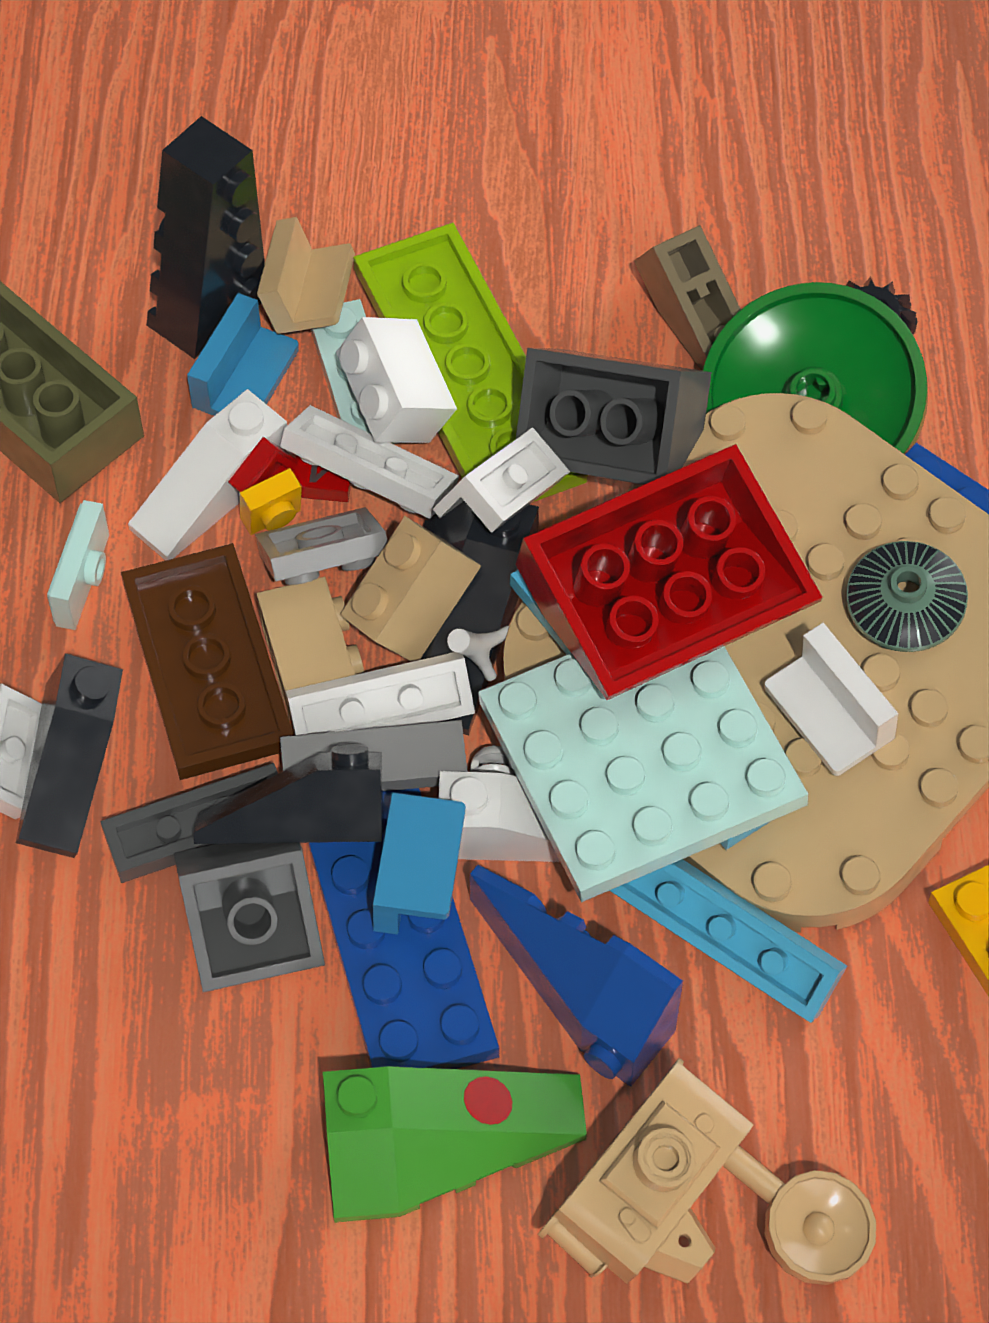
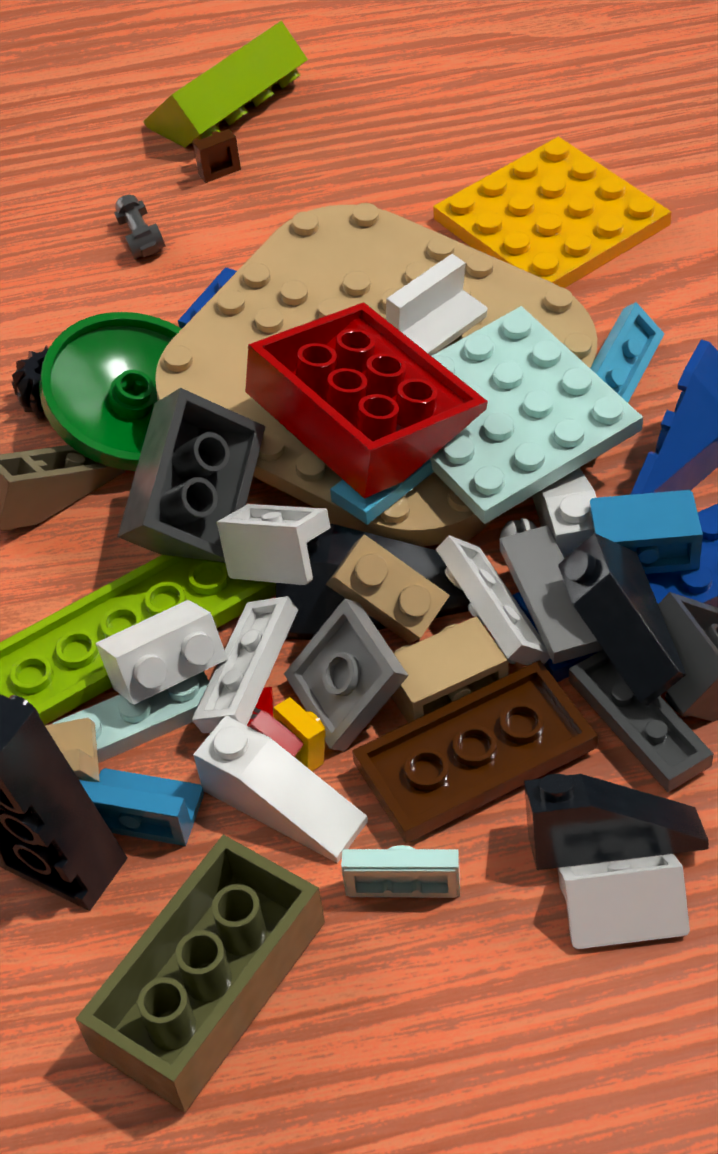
camera: 95 degrees left, 10 degrees down
(477, 647) = (428, 539): white bar -> none
(901, 618) = (331, 284): dish -> none

